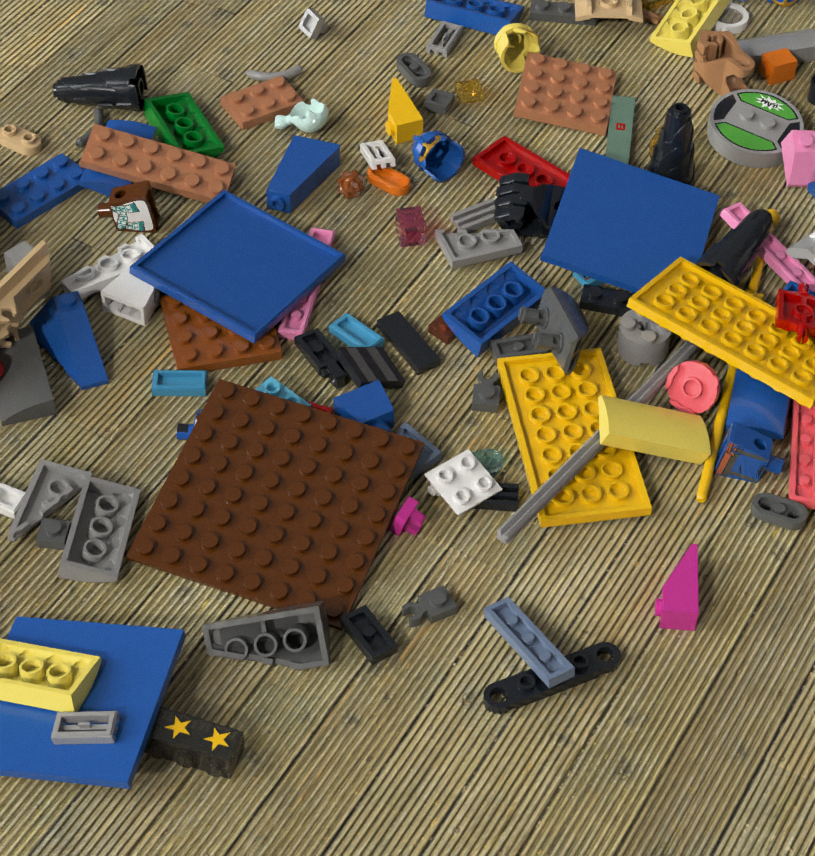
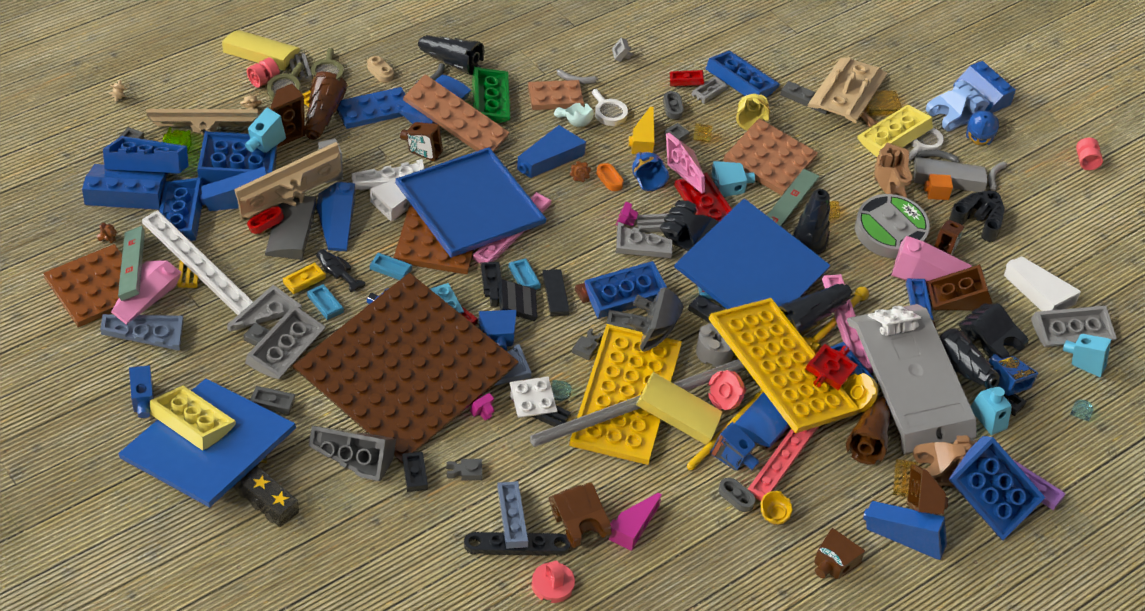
camera: 20 degrees right, 0 degrees up
(74, 436) = (304, 278): none -> yellow plate
(85, 732) = (200, 462): light grey tile -> none
(113, 408) = (338, 268): none -> black animal
(119, 458) = (325, 302): none -> dark azure tile
(126, 610) = (273, 399): none -> dark grey plate
(342, 100) = (609, 111): none -> white piece
(373, 156) = (611, 162): white tile -> none
(410, 33) = (686, 78): none -> red plate
(410, 226) = (603, 214): clear pink brick -> none
(438, 217) = (627, 215): none -> dark pink tile
(478, 132) = (684, 162): none -> bright pink wedge
(536, 132) = (730, 178): none -> medium azure torso
(615, 603) = (580, 512): none -> reddish brown piece
(626, 708) = (553, 582): none -> coral tile
(754, 29) = (938, 153): none -> dark grey piece

